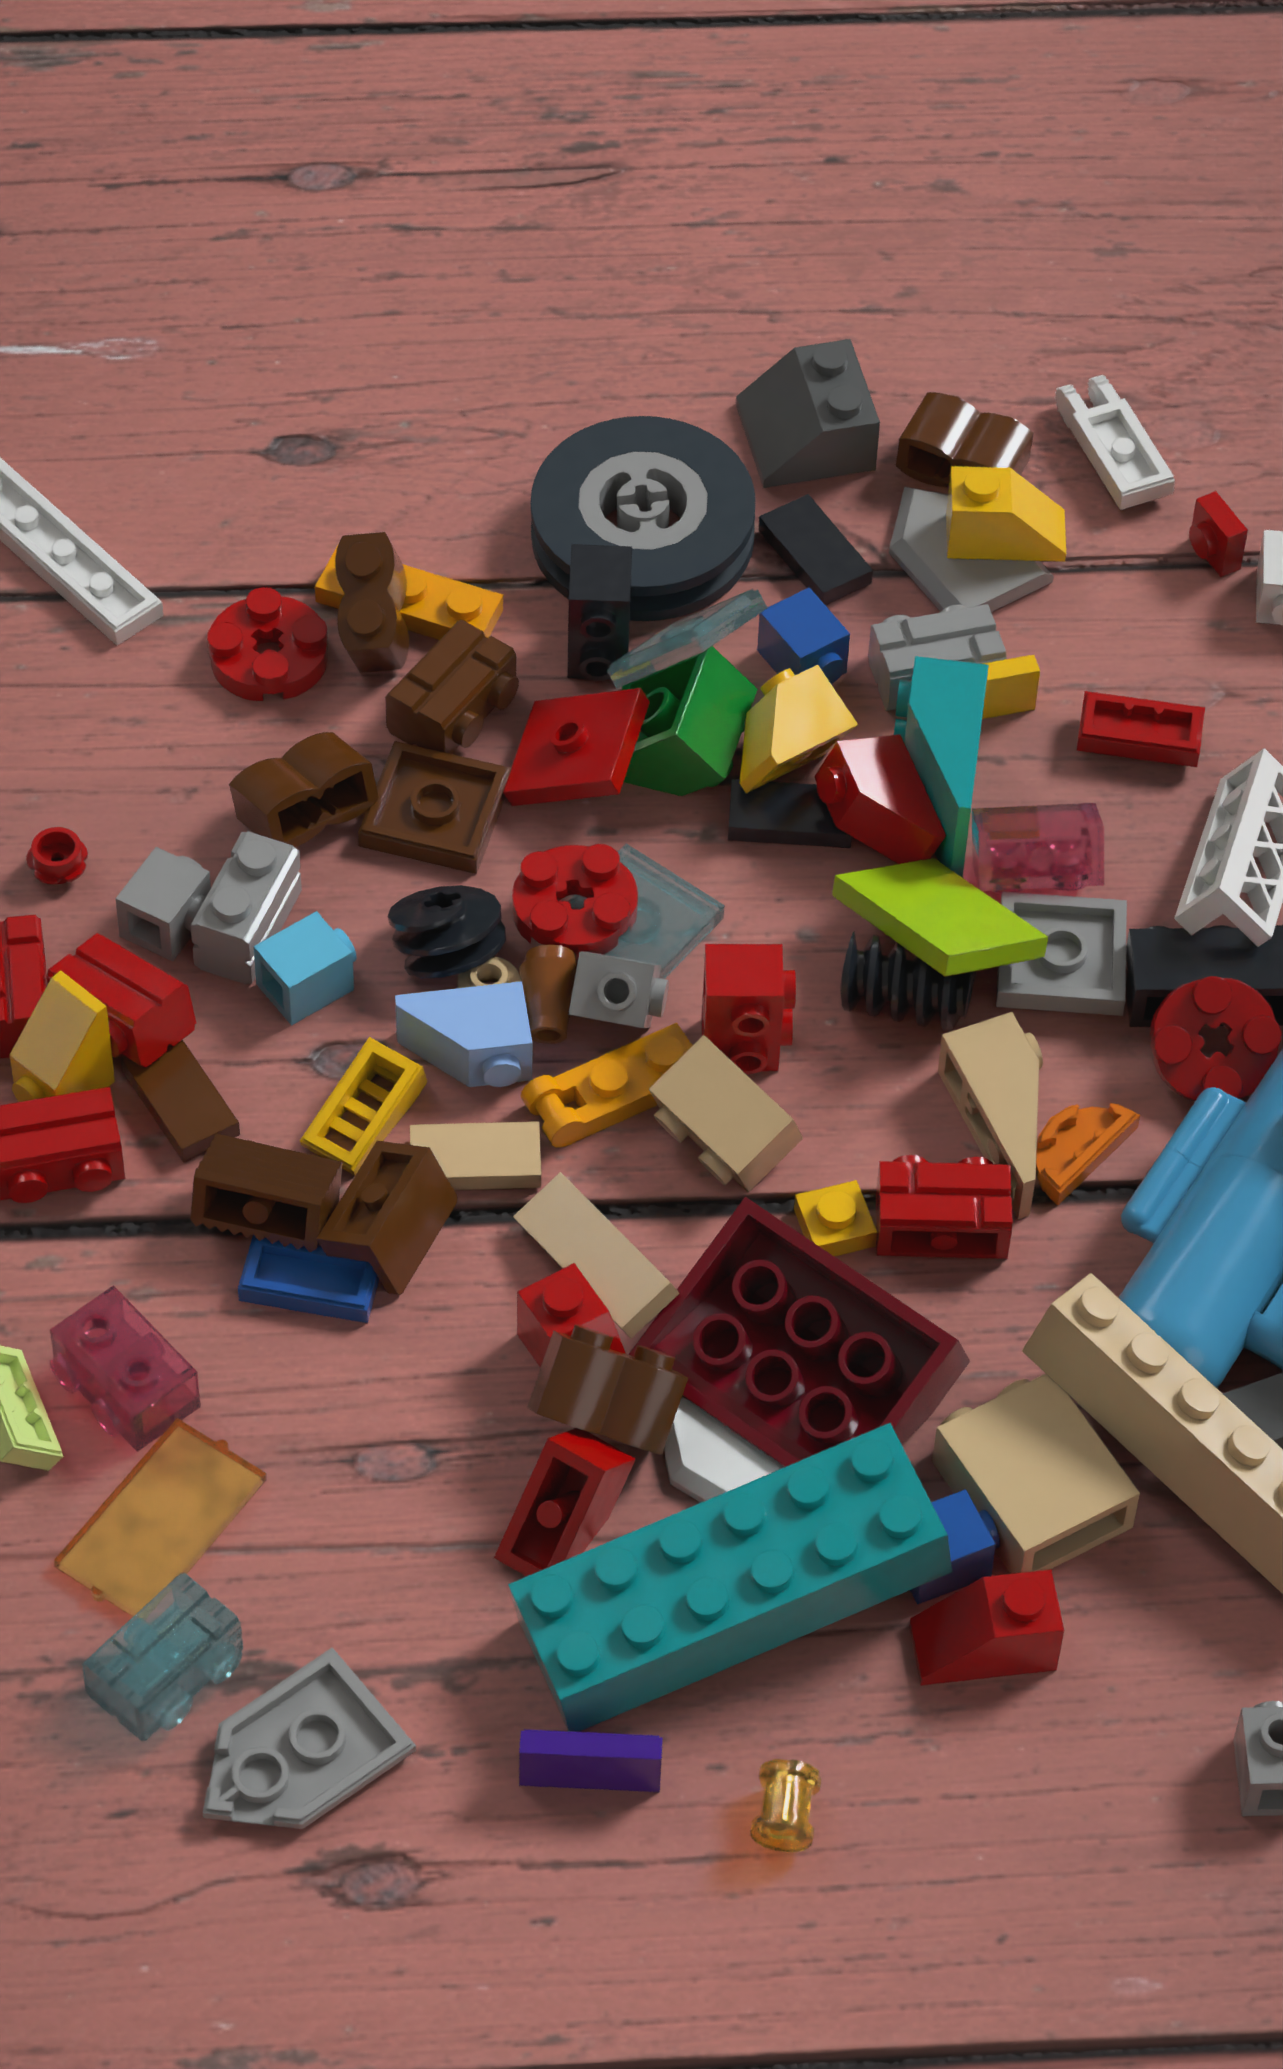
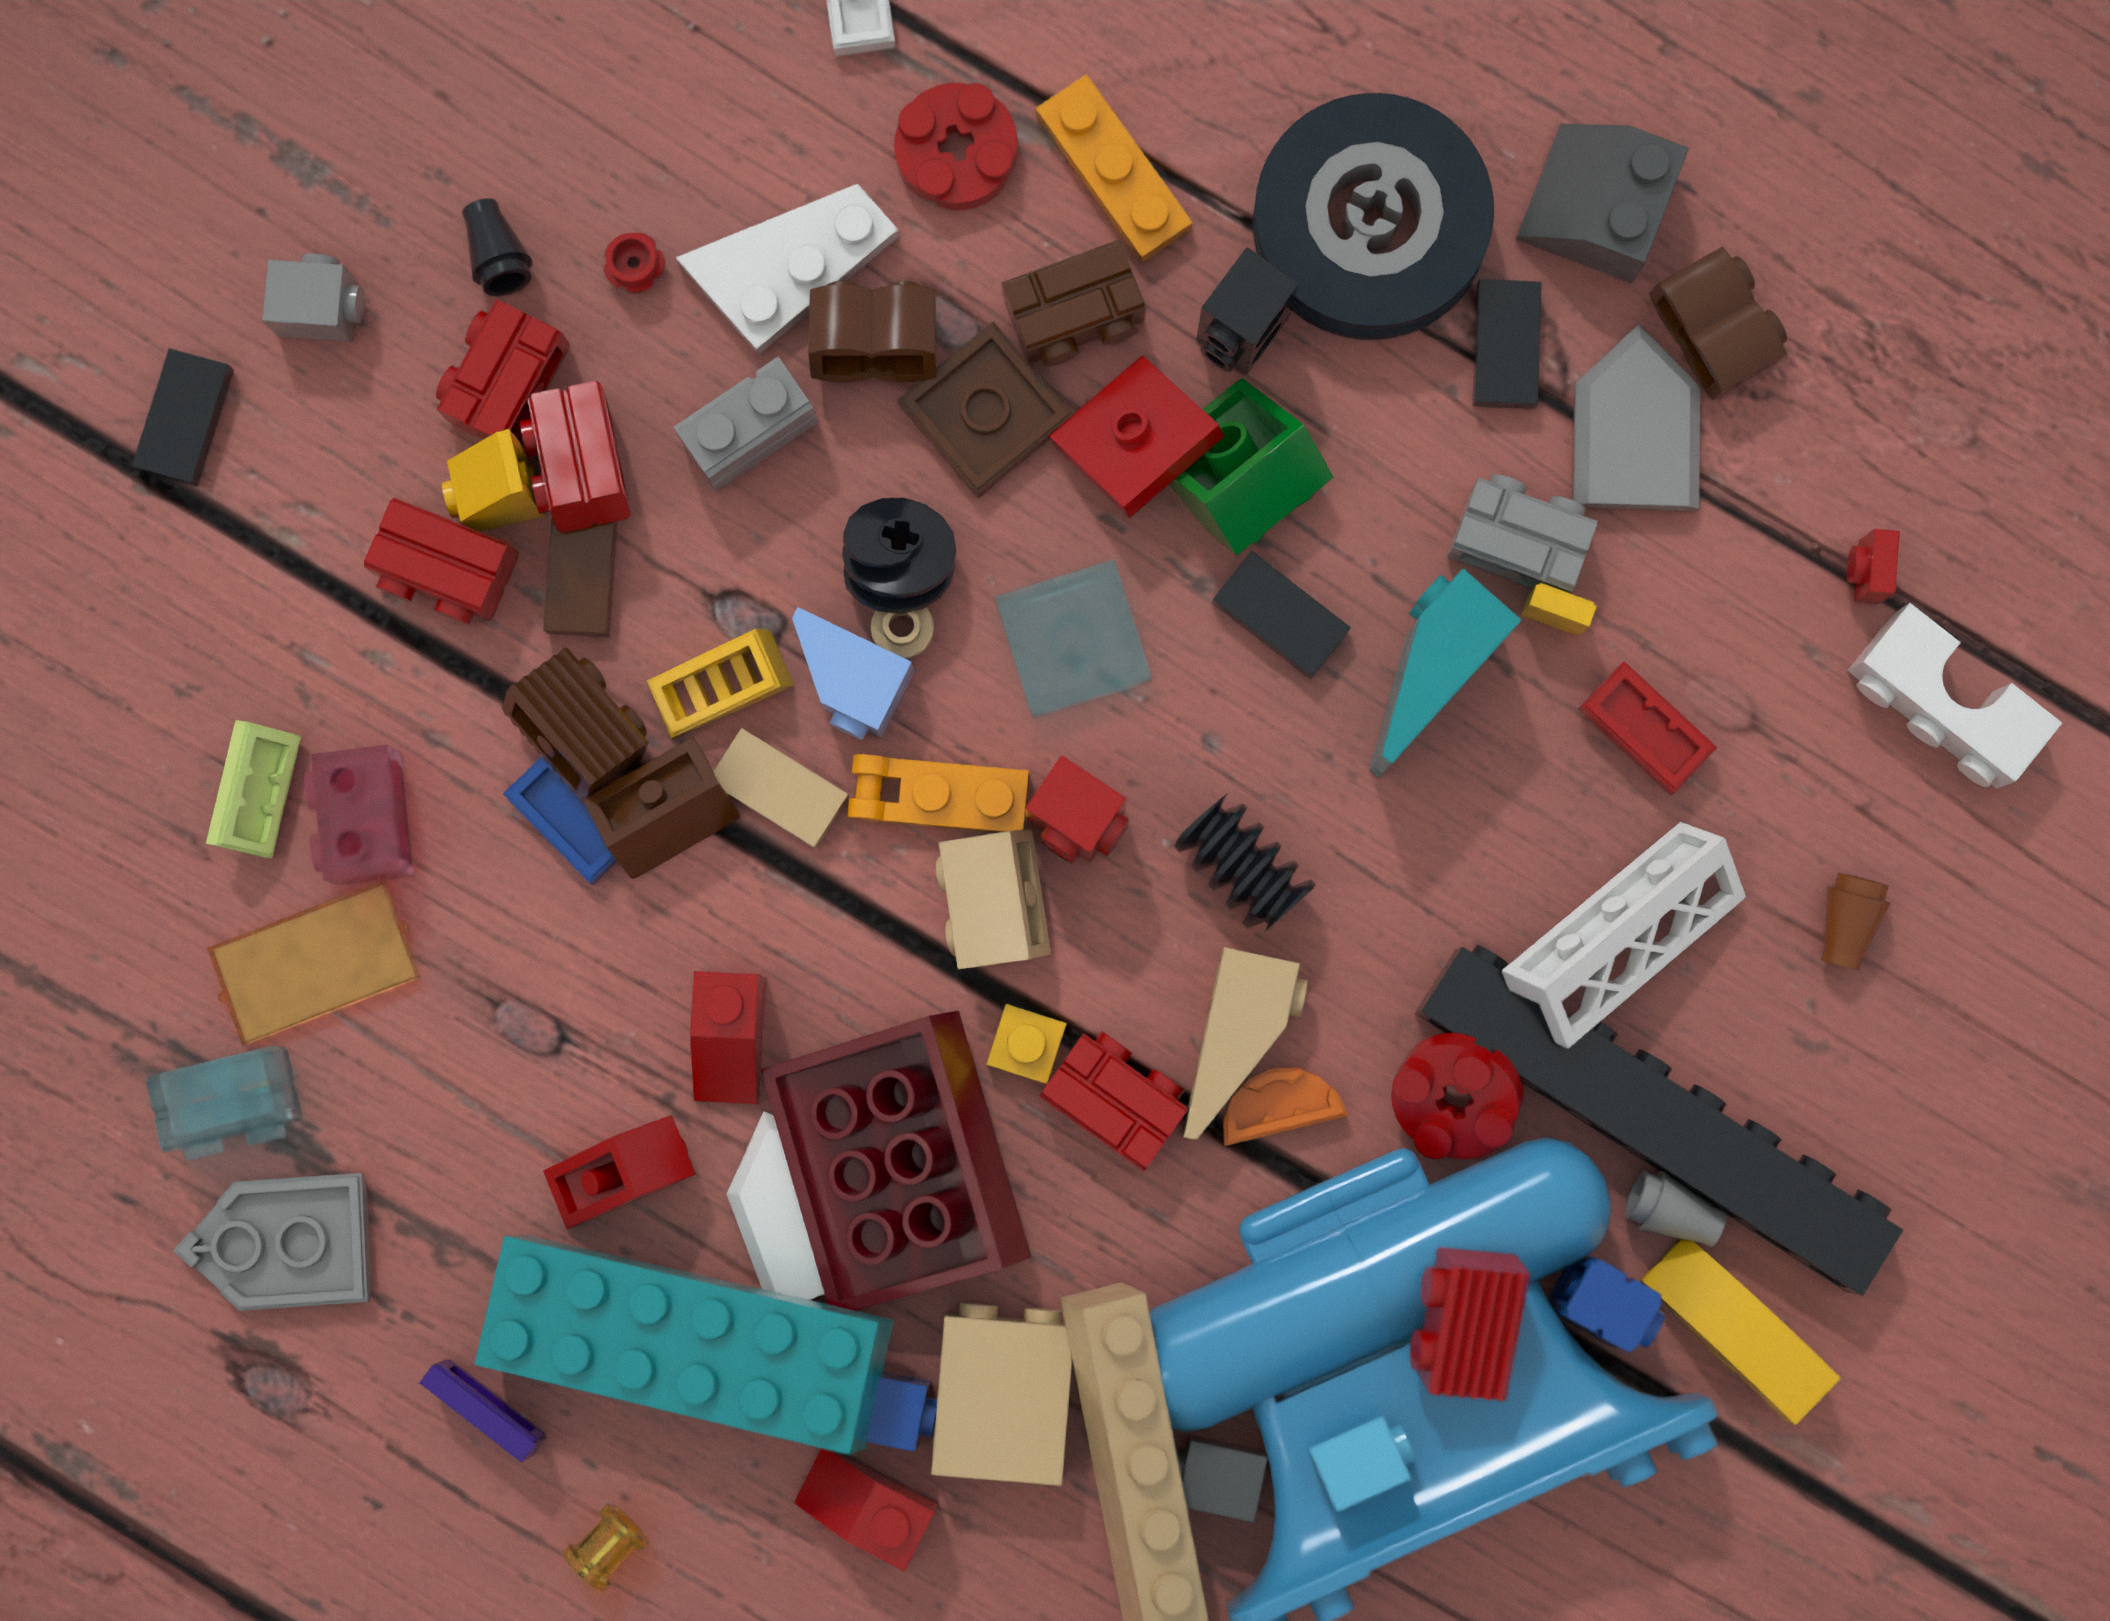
camera: 40 degrees right, 30 degrees up
(162, 902) = (686, 371): light grey brick -> none
(187, 796) = (767, 270): none -> white wing
(305, 967) = (758, 515): medium azure brick -> none
(372, 602) = (1050, 187): reddish brown brick -> none
(548, 989) = (944, 670): dark orange cone -> none
(580, 1234) = (796, 962): tan tile -> none
(581, 871) = (1008, 563): red plate -> none
(608, 1390) = (708, 1106): reddish brown brick -> none
(618, 990) = (993, 714): light grey brick -> none
(686, 637) = (1299, 395): clear light blue tile -> none
(791, 726) = (1327, 542): yellow slope -> none
(803, 635) = (1416, 448): blue brick -> none
(880, 798) = (1353, 665): red slope -> none
(939, 917) = (1309, 827): lime tile -> none
(1001, 517) = (1686, 435): yellow slope -> none
(1038, 847) = (1455, 799): clear pink brick -> none
(1082, 957) = (1402, 914): light grey plate -> none
(1115, 444) = (1863, 403): white hinge -> none

